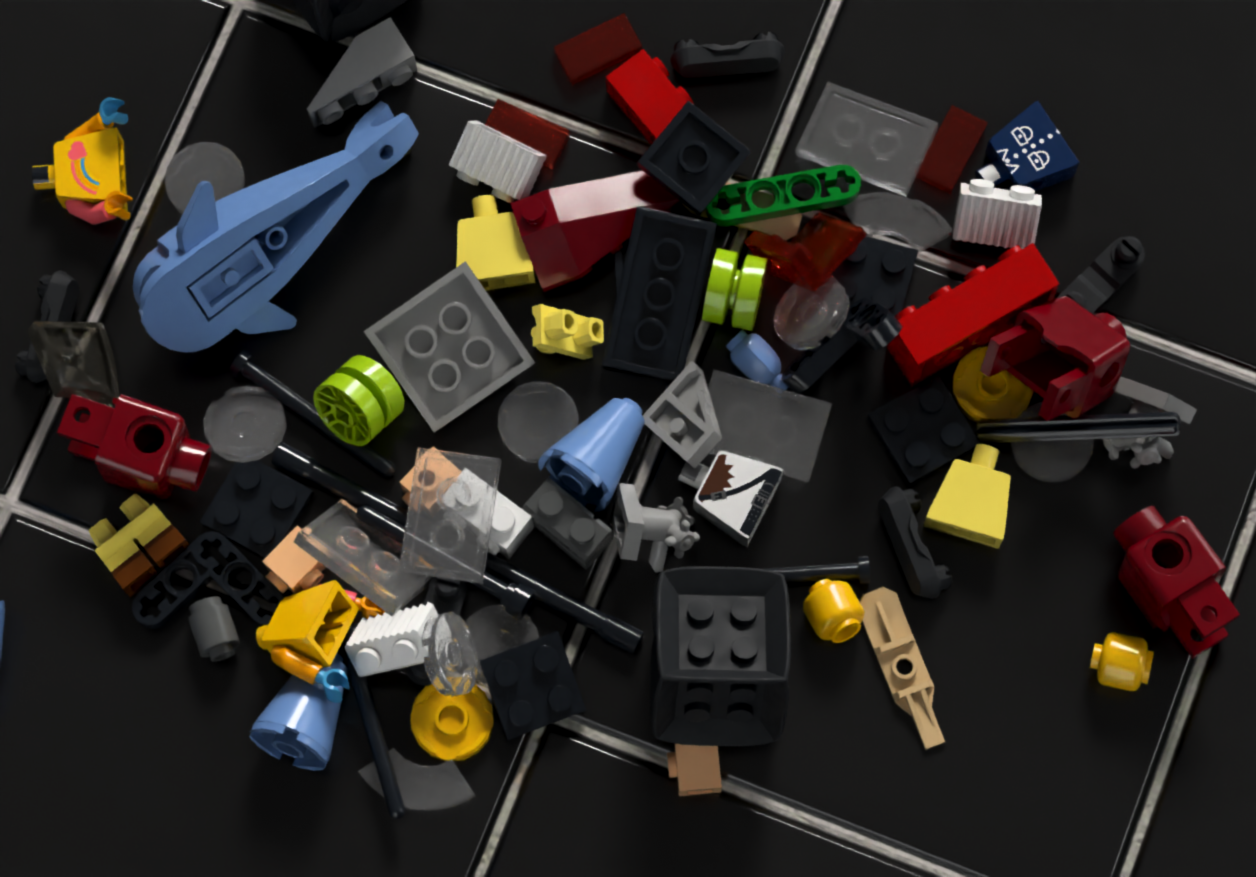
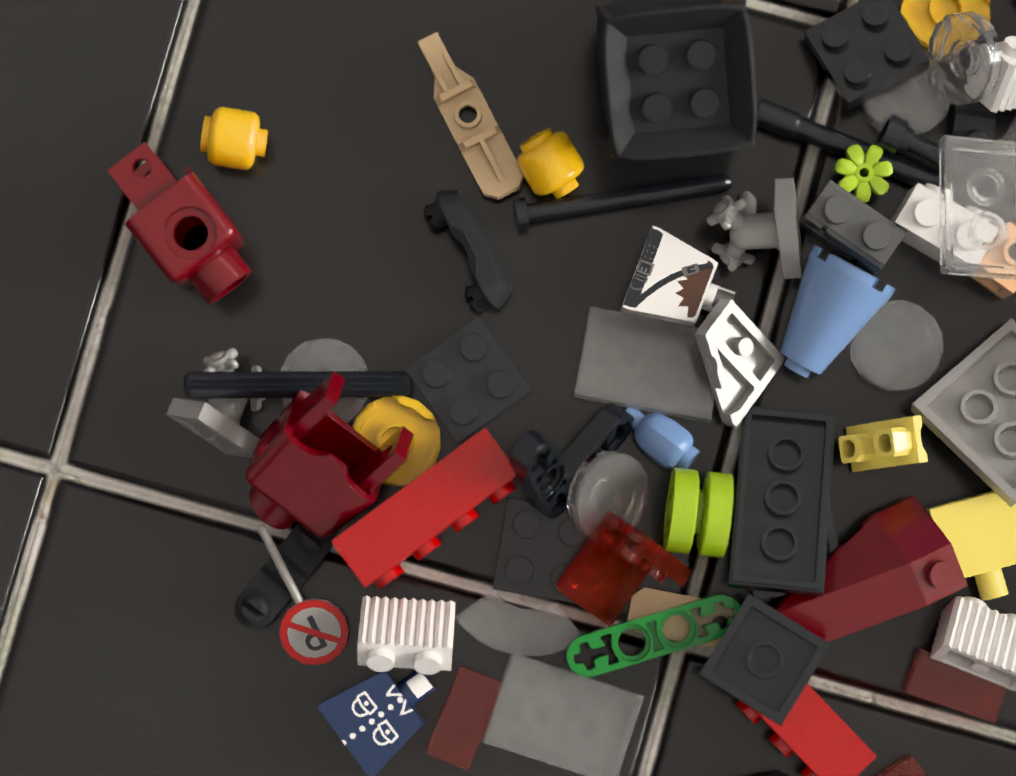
camera: 165 degrees right, 10 degrees up
(551, 569) = (870, 169): none -> lime plant
(973, 499) = (408, 303): light yellow torso -> none
(1080, 233) = (312, 628): none -> piece

